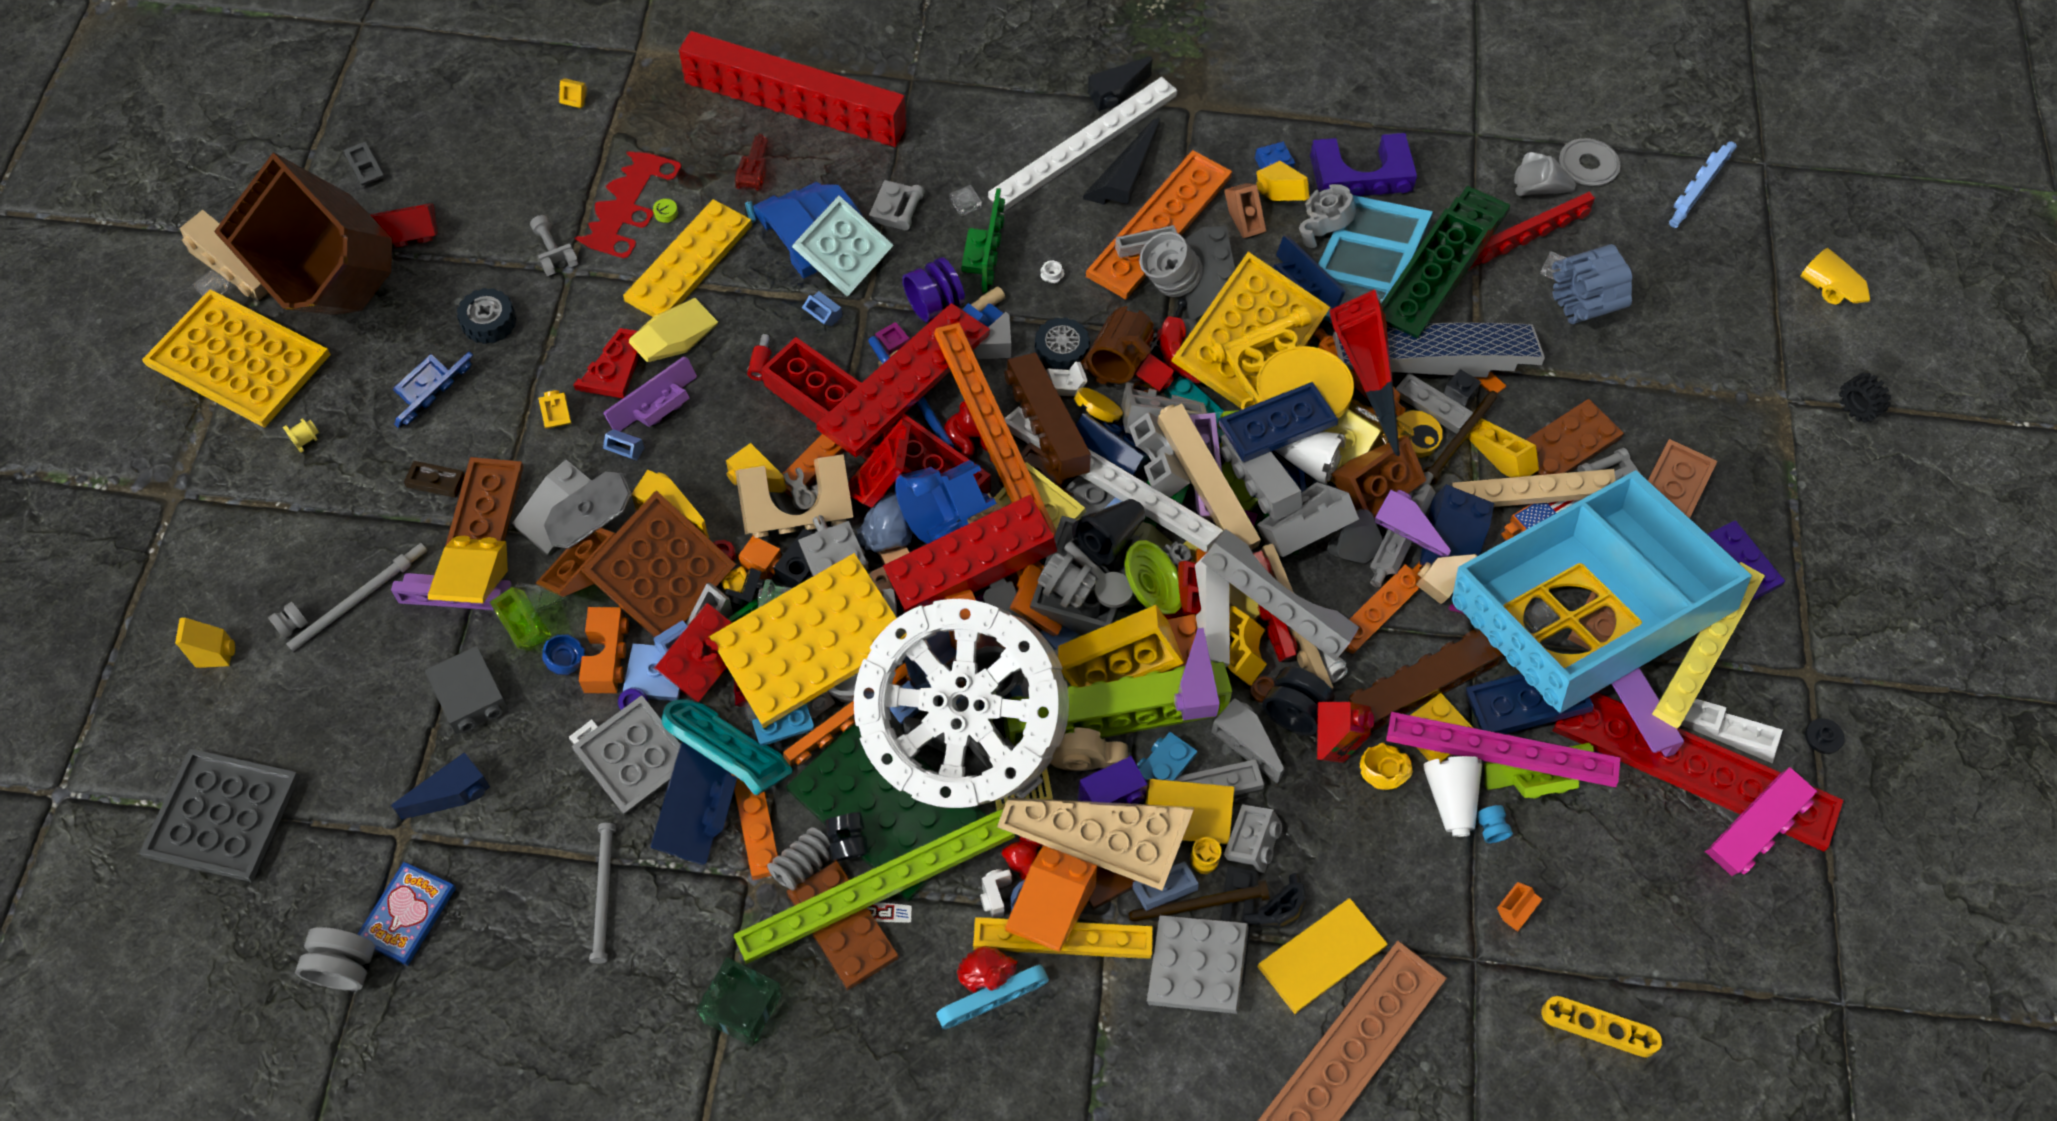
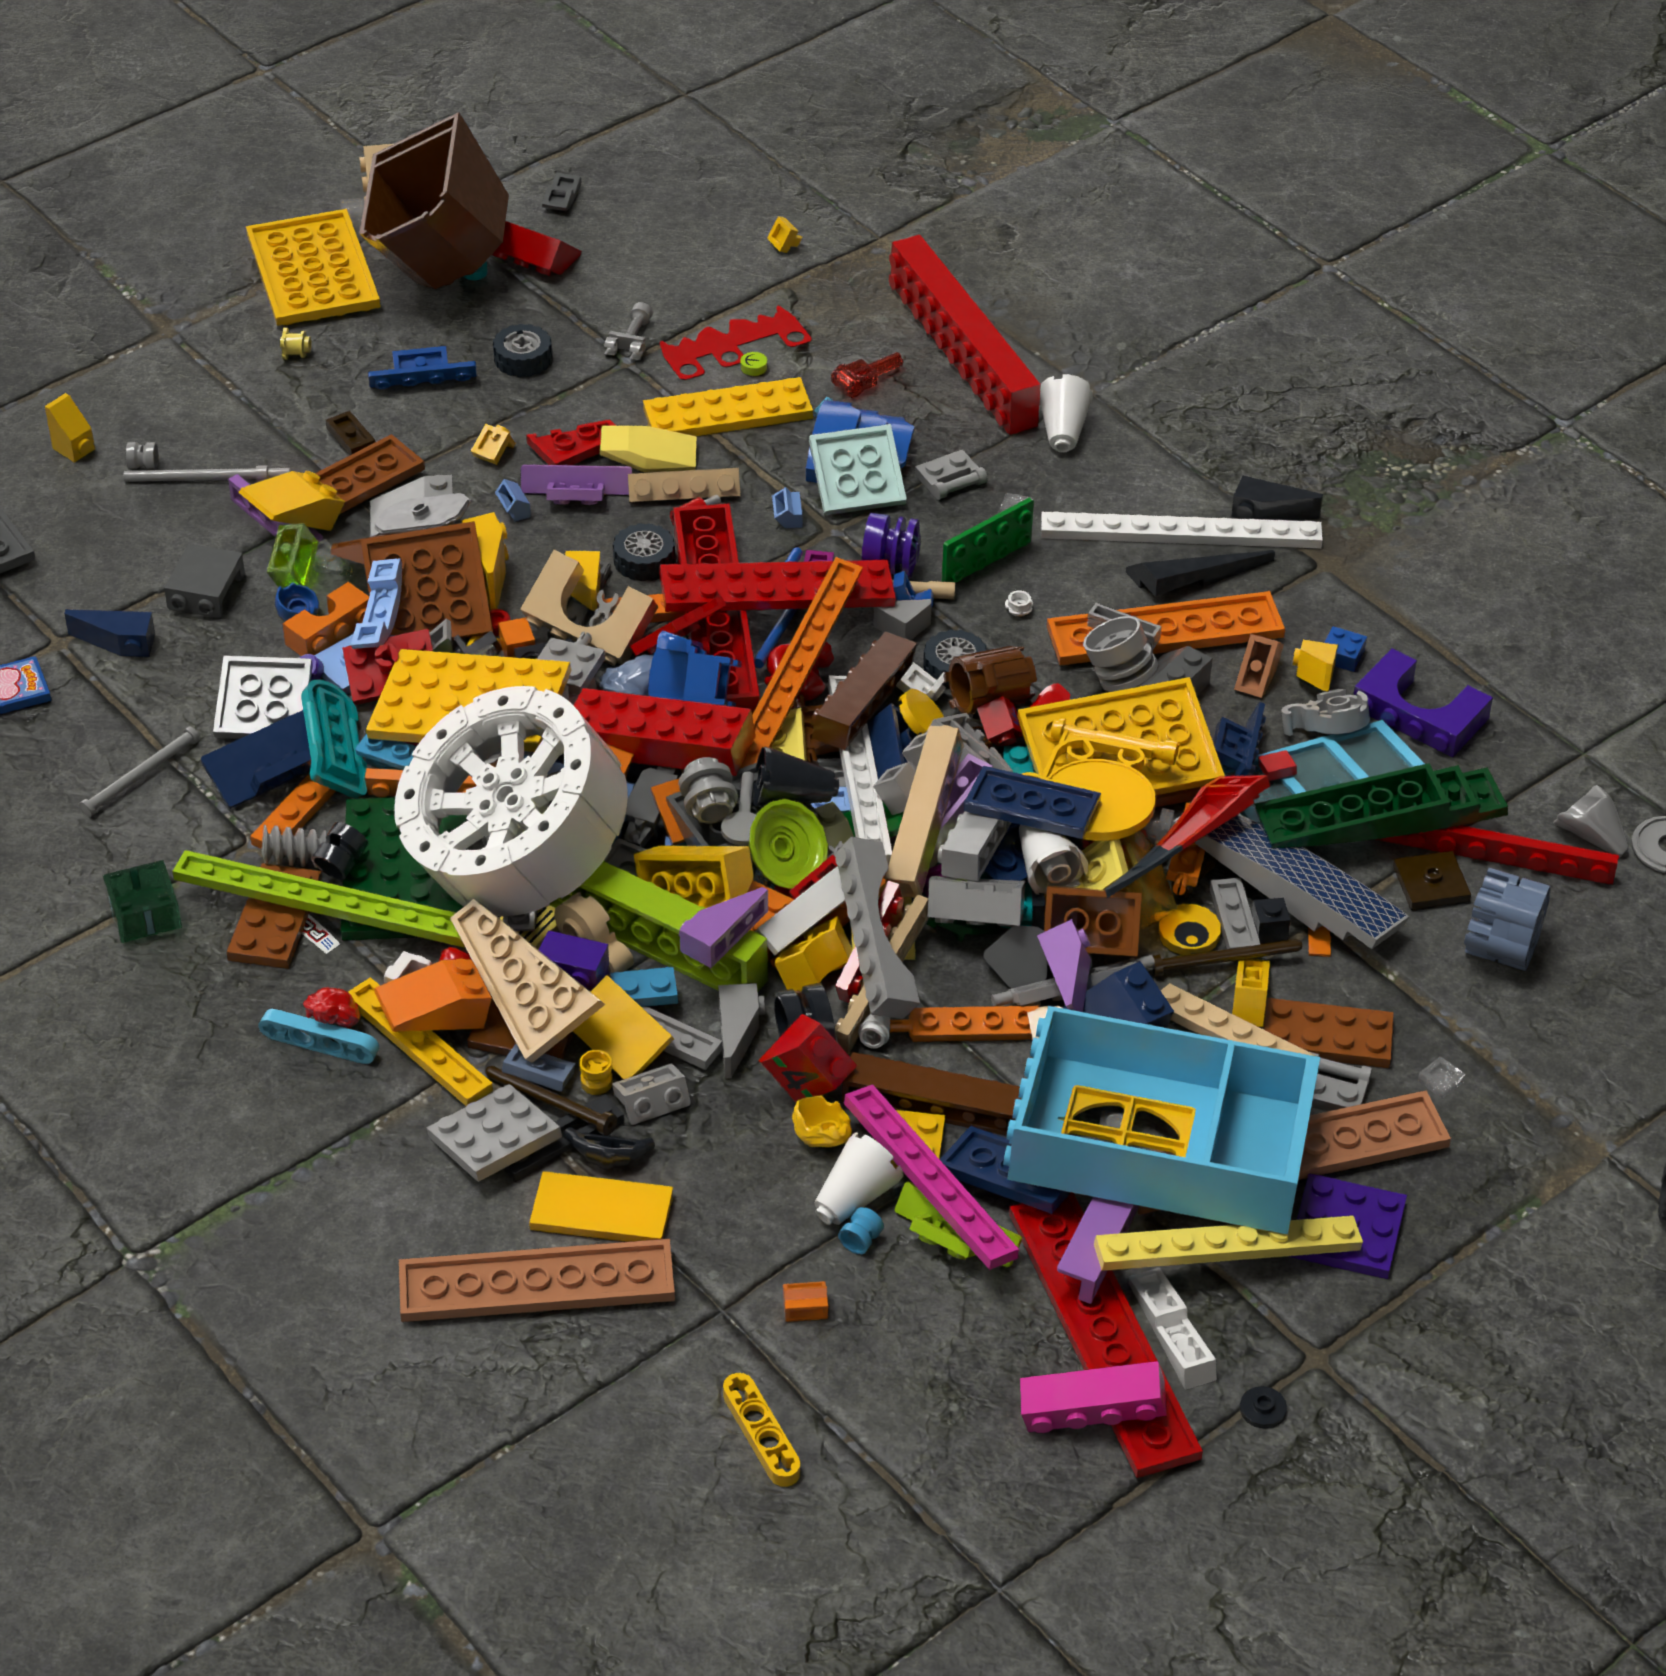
camera: 45 degrees right, 15 degrees down
(651, 613) = (382, 606): none -> light blue slope
(731, 343) = (683, 484): none -> tan plate
(764, 417) = (642, 550): none -> black wheel
(925, 105) = (1064, 409): none -> white cone
(1343, 273) = (1277, 765): none -> red tile
(1501, 288) = (1432, 880): none -> dark brown plate
(1661, 422) = (1441, 1077): none -> clear plate

